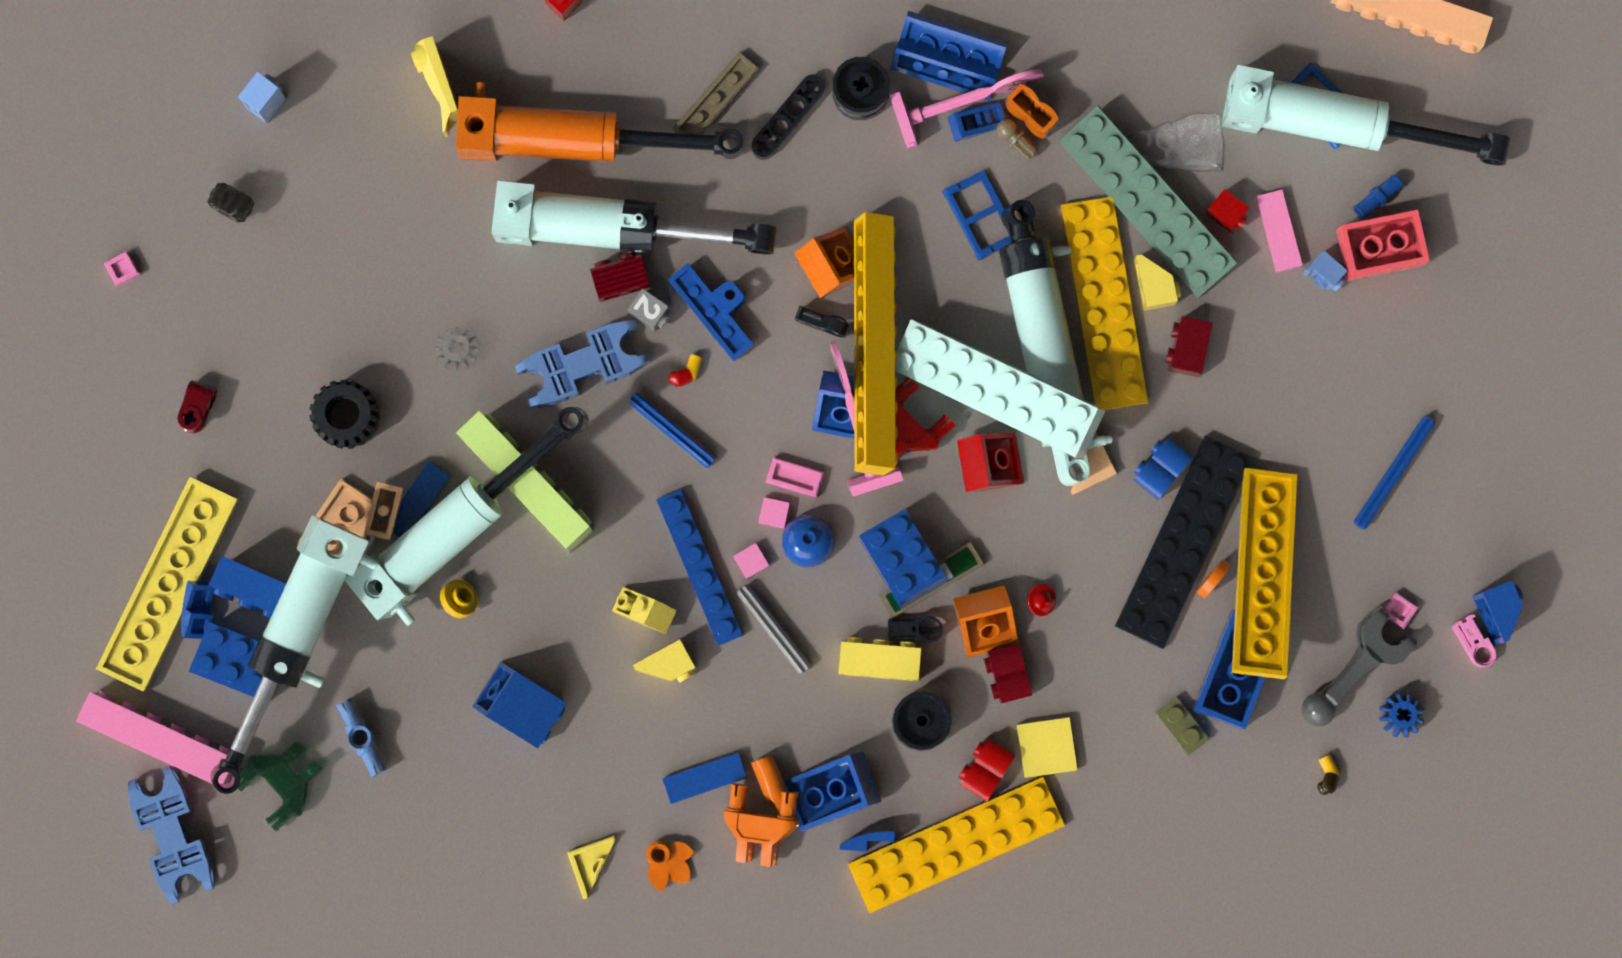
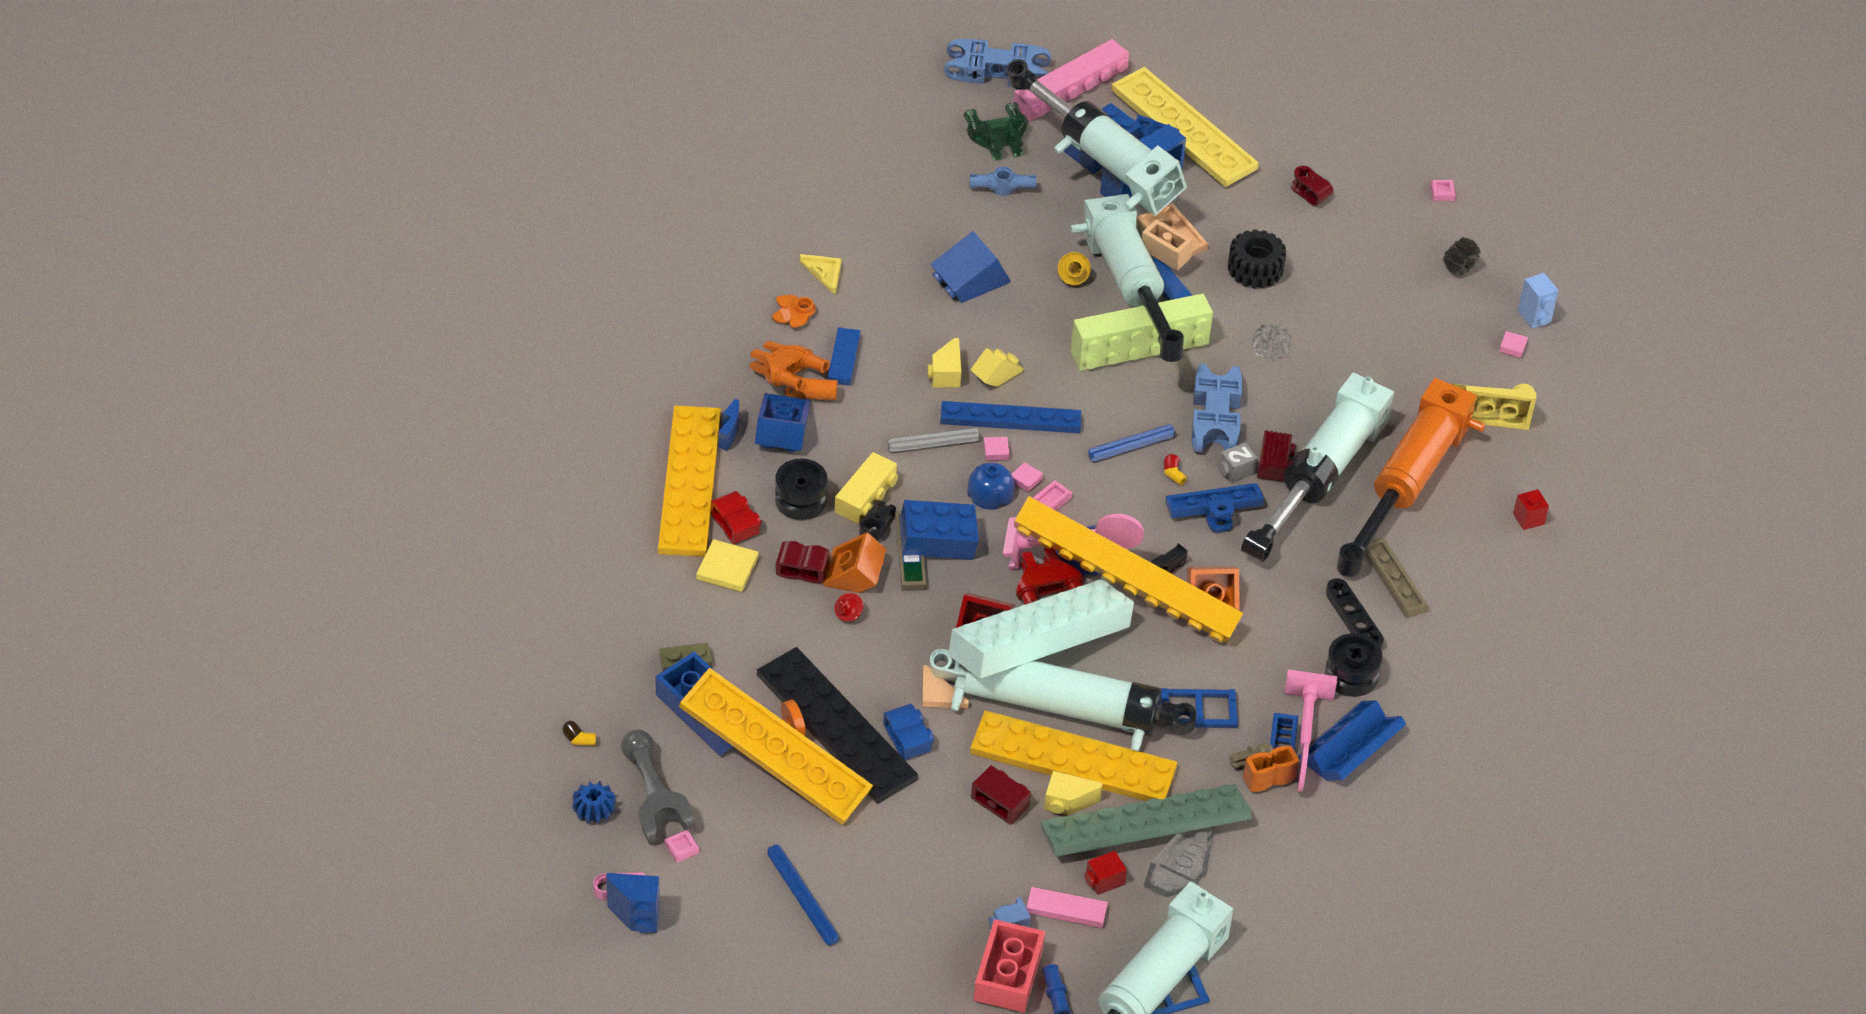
camera: 115 degrees right, 35 degrees down
(325, 106) = (1513, 344): none -> bright pink tile

